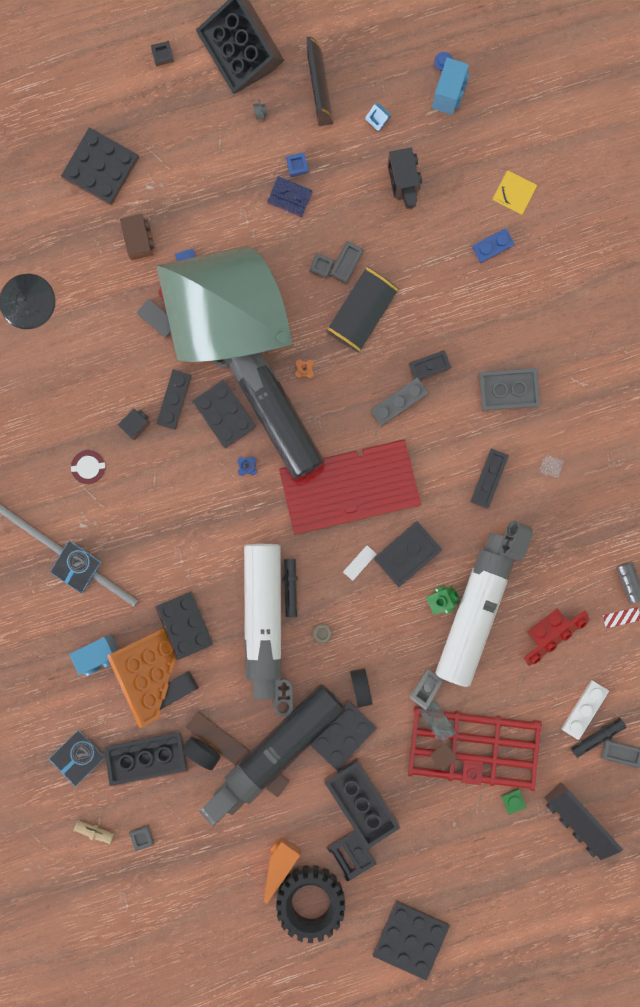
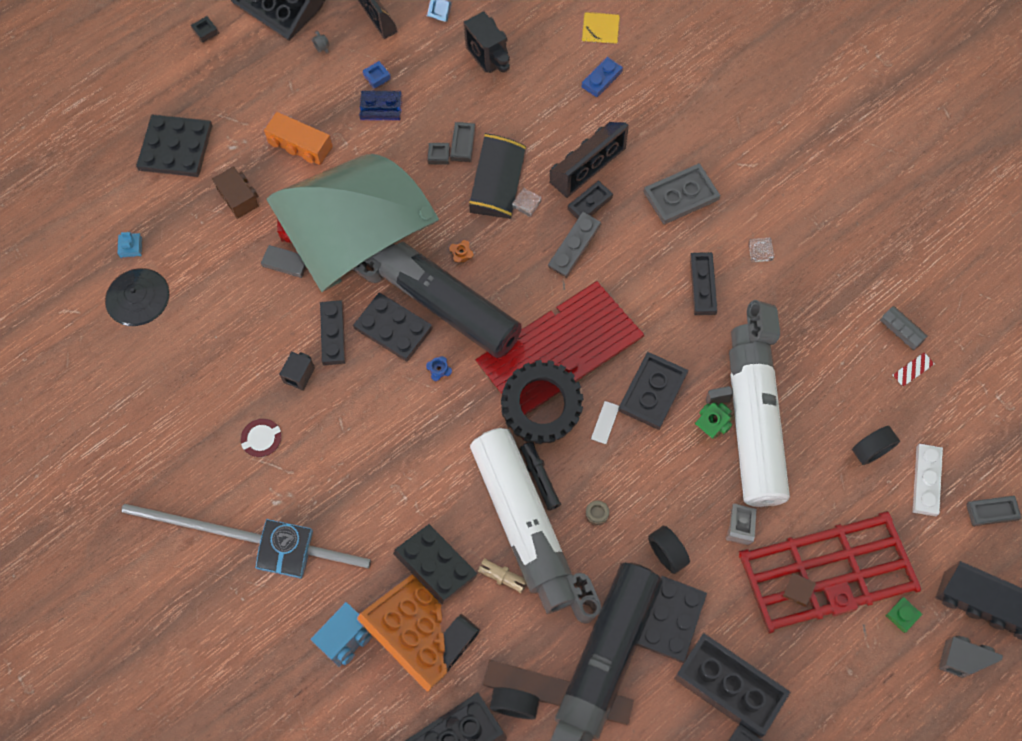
camera: 25 degrees left, 20 degrees down
(34, 251) = (129, 244): none -> dark azure tile
(206, 204) = (298, 138): none -> orange brick
(230, 653) = (502, 575): none -> tan pin
(321, 511) = (520, 423): none -> black tyre
(376, 345) = (527, 202): none -> clear plate
(437, 721) = (772, 555): clear light blue slope -> none
(446, 324) = (589, 157): none -> black slope
(456, 580) = (719, 395): none -> dark grey tile
(540, 852) = (965, 658): none -> dark grey slope
(551, 632) = (848, 411): red bracket -> none
(556, 671) = (876, 445): none -> black tyre
(605, 733) = (963, 494): black pin -> none

